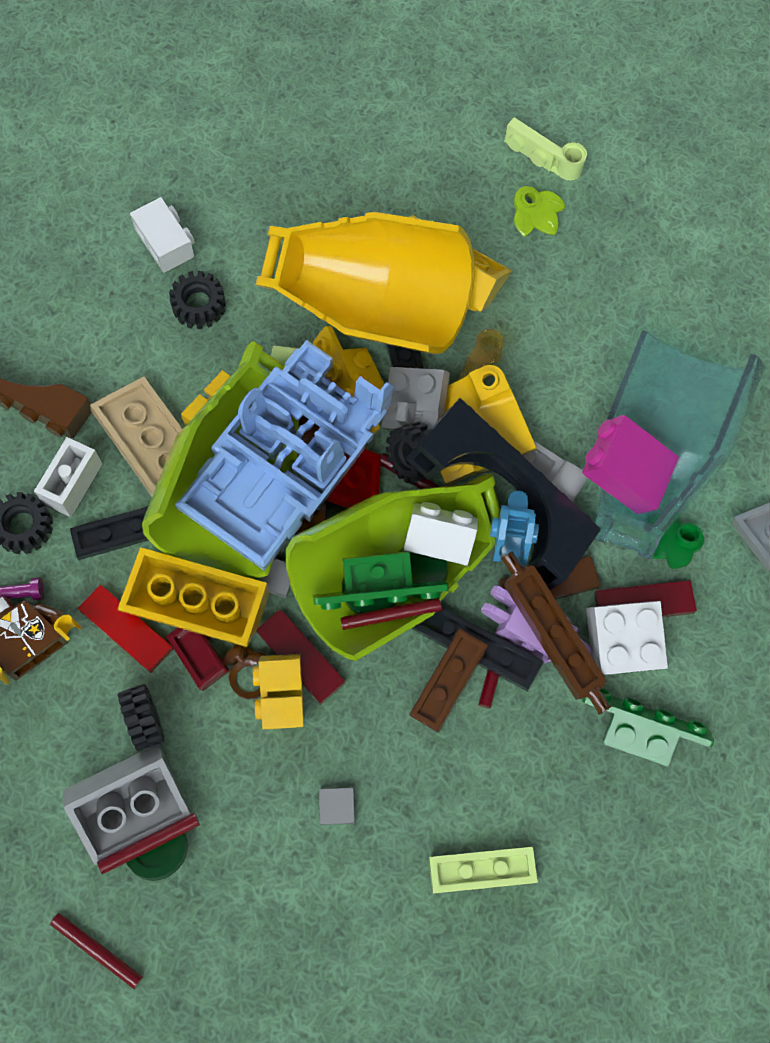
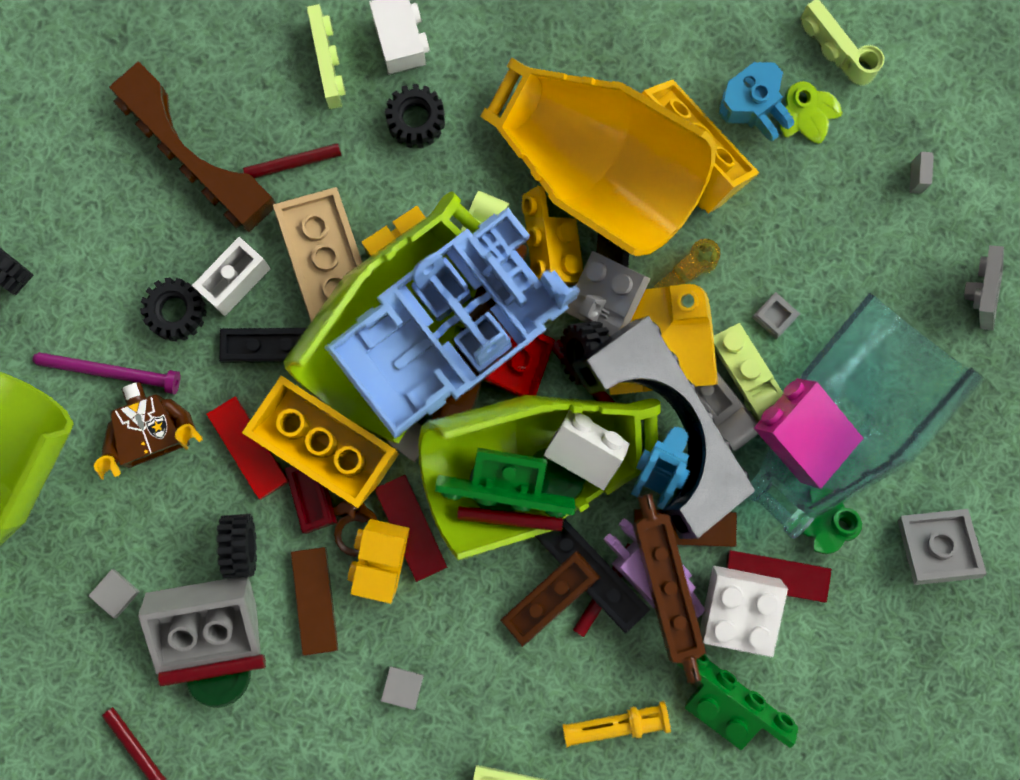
camera: 20 degrees right, 10 degrees up
(31, 802) = (114, 593): none -> light grey tile
(100, 365) = (293, 161): none -> dark red bar
(103, 270) = (326, 56): none -> yellowish green plate
(229, 751) = (314, 601): none -> reddish brown tile
(488, 208) = (753, 97): none -> dark azure hinge
(558, 431) = (747, 370): none -> yellowish green plate
(561, 771) = (633, 722): none -> yellow pin
(566, 381) = (776, 315): none -> light grey tile
(648, 233) = (921, 172): none -> light grey tile
(738, 312) = (987, 294): none -> light grey hinge

